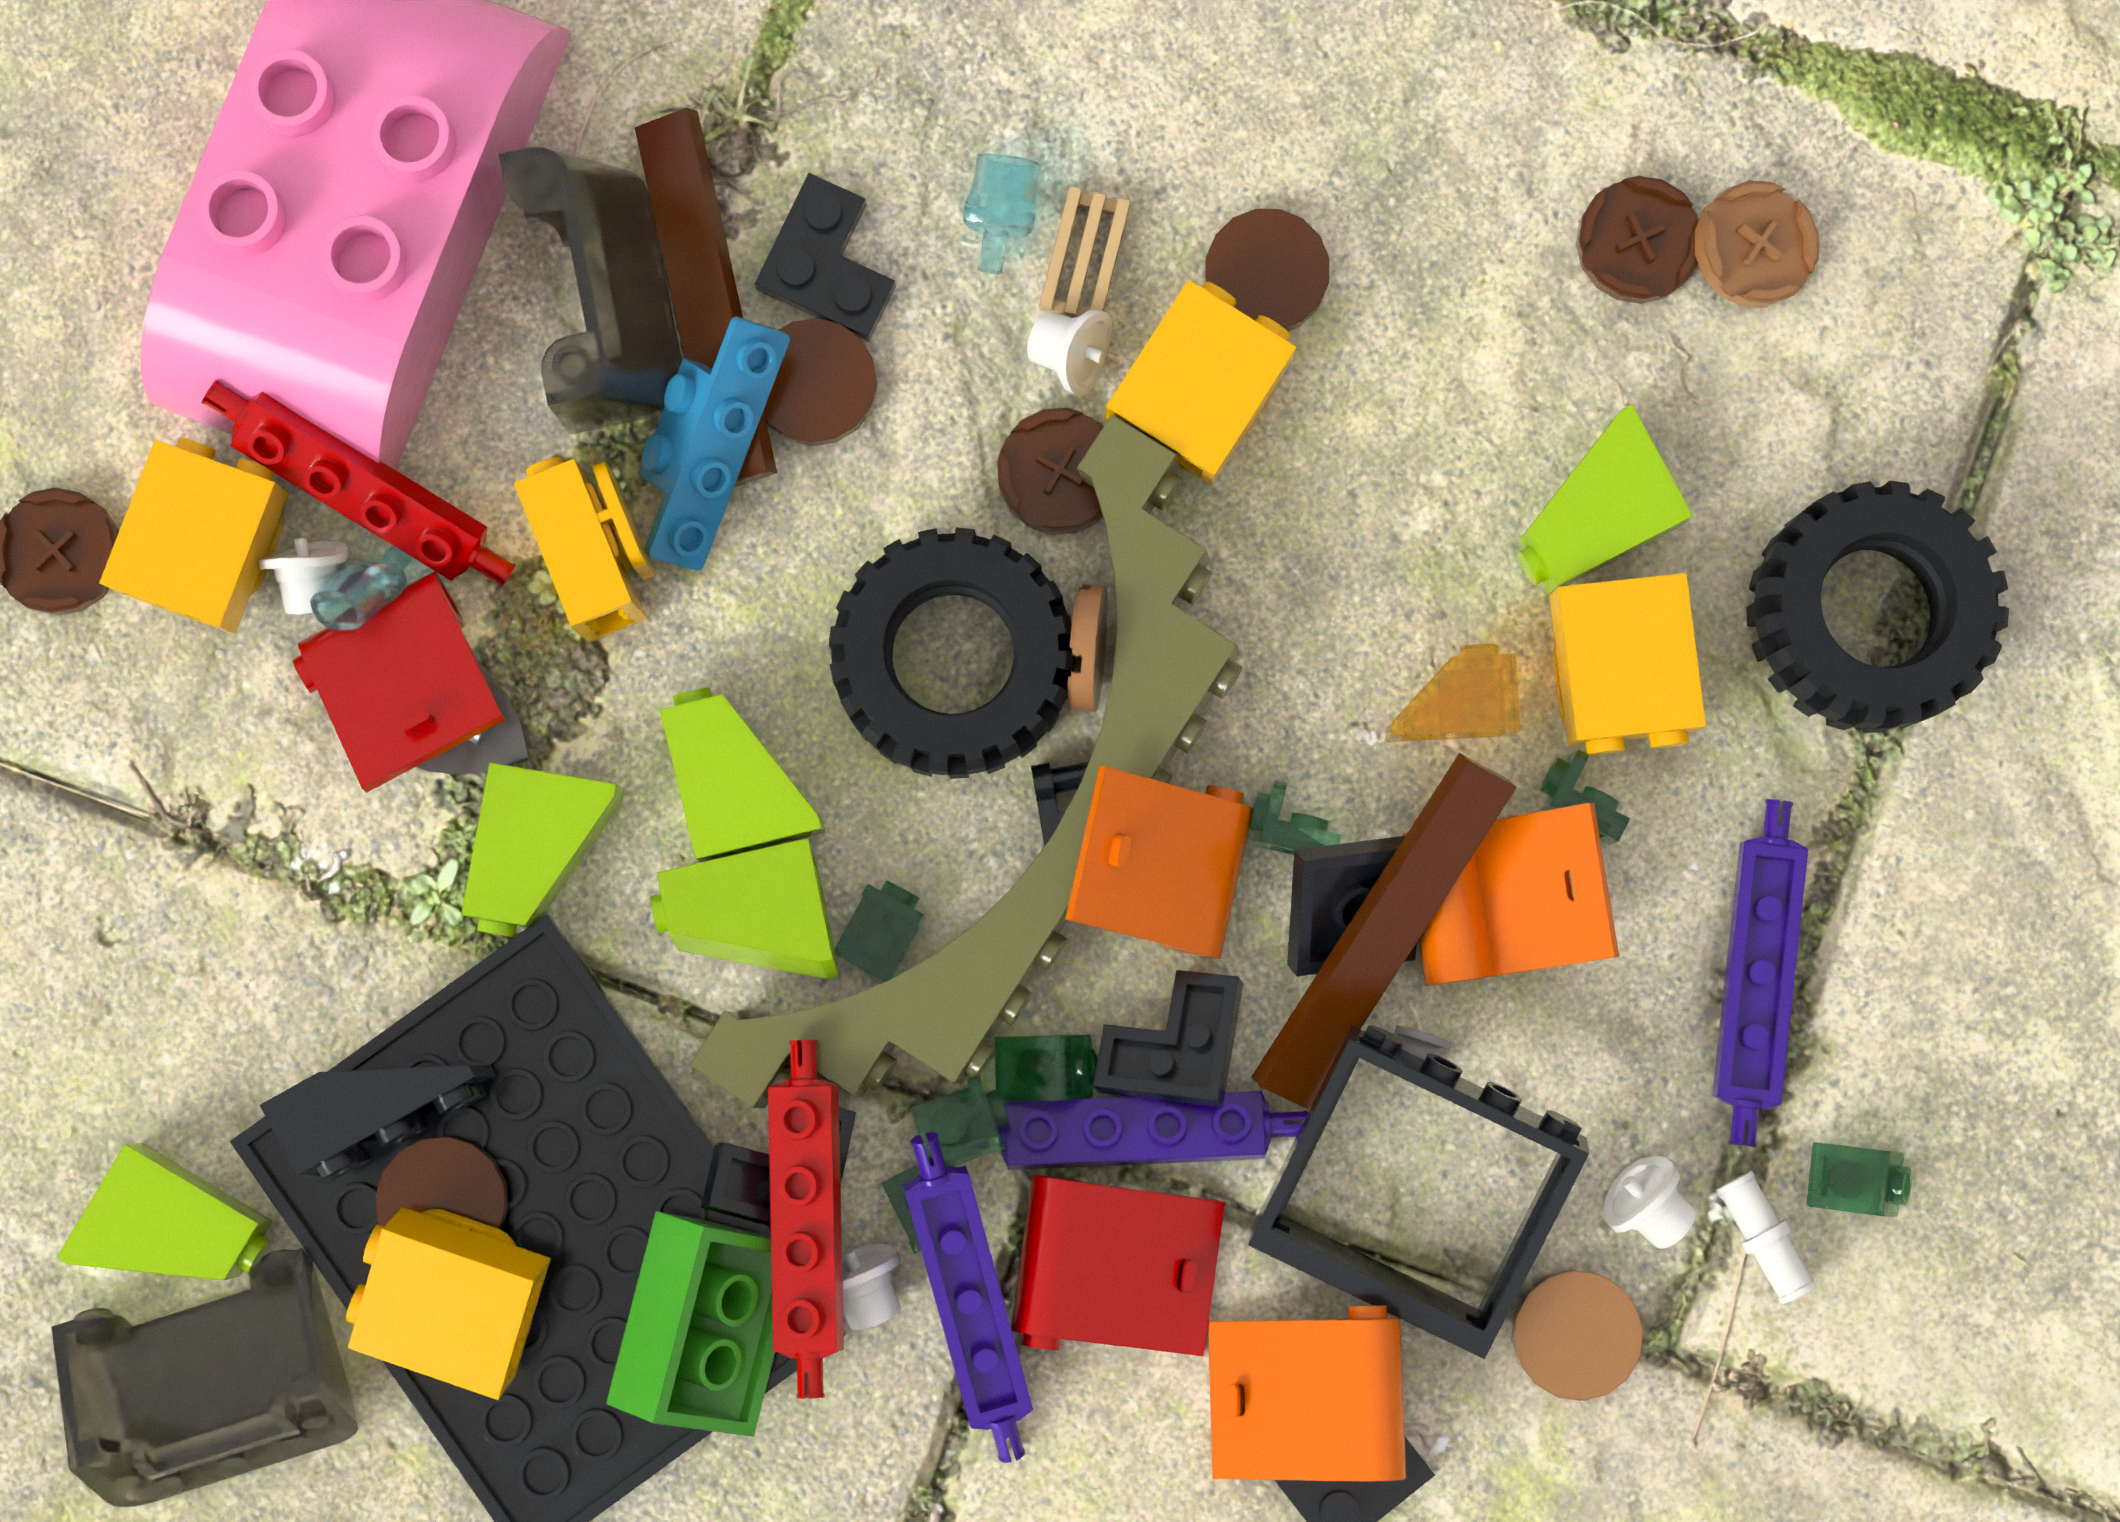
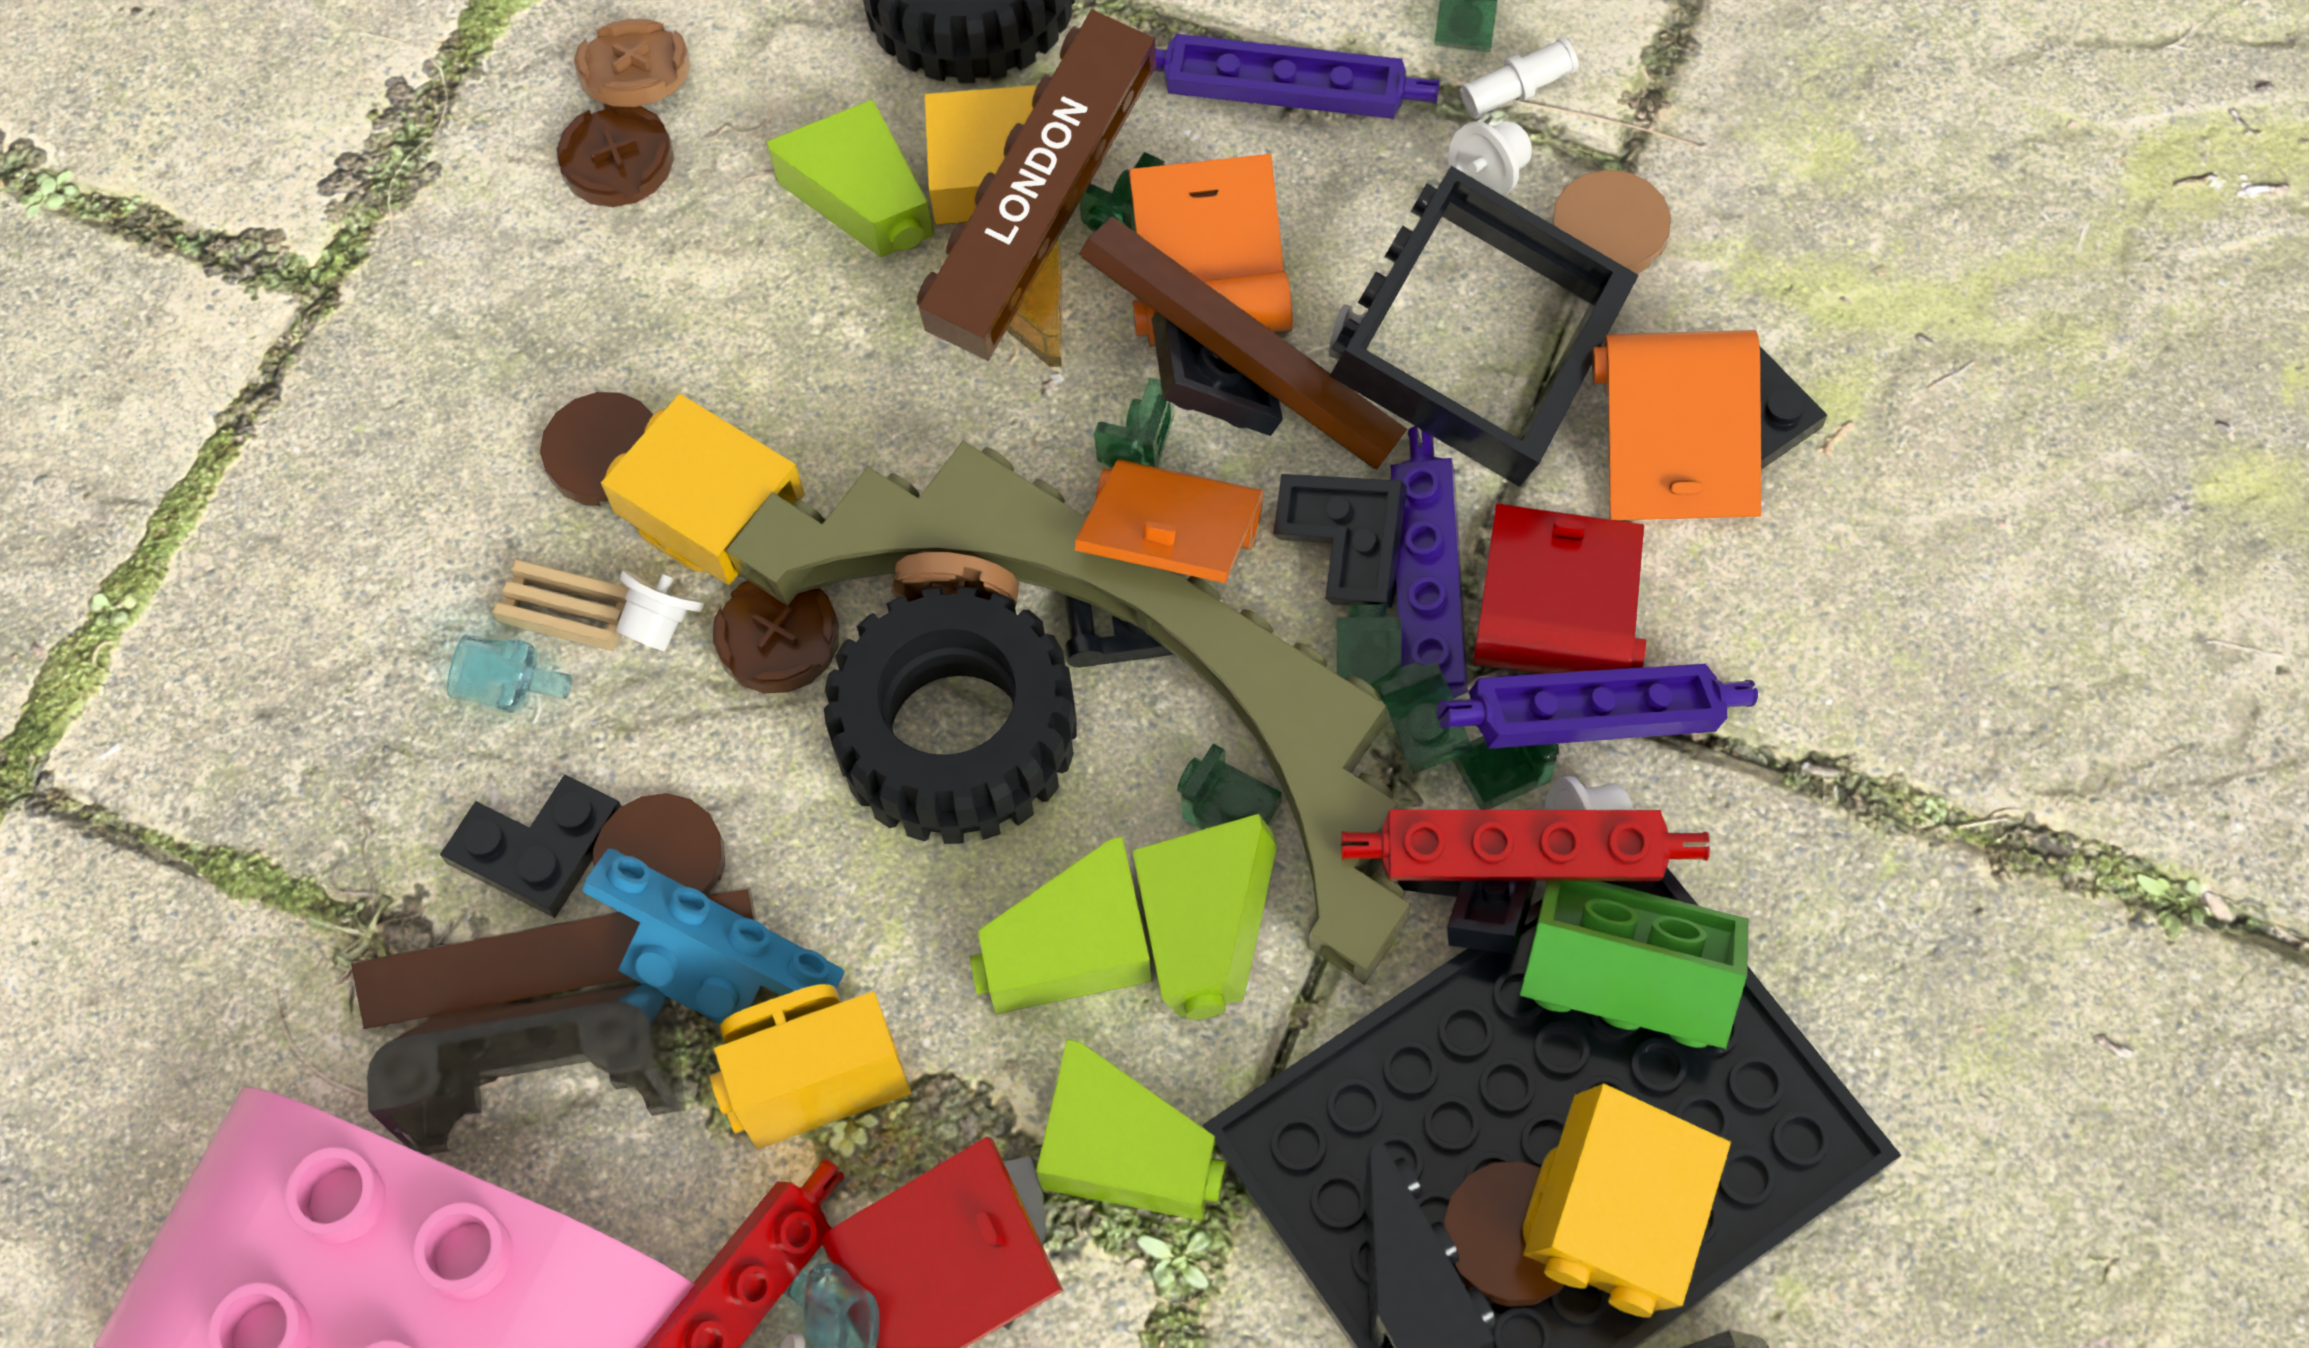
camera: 85 degrees left, 20 degrees down
(1555, 706) = (1037, 184): none -> reddish brown brick

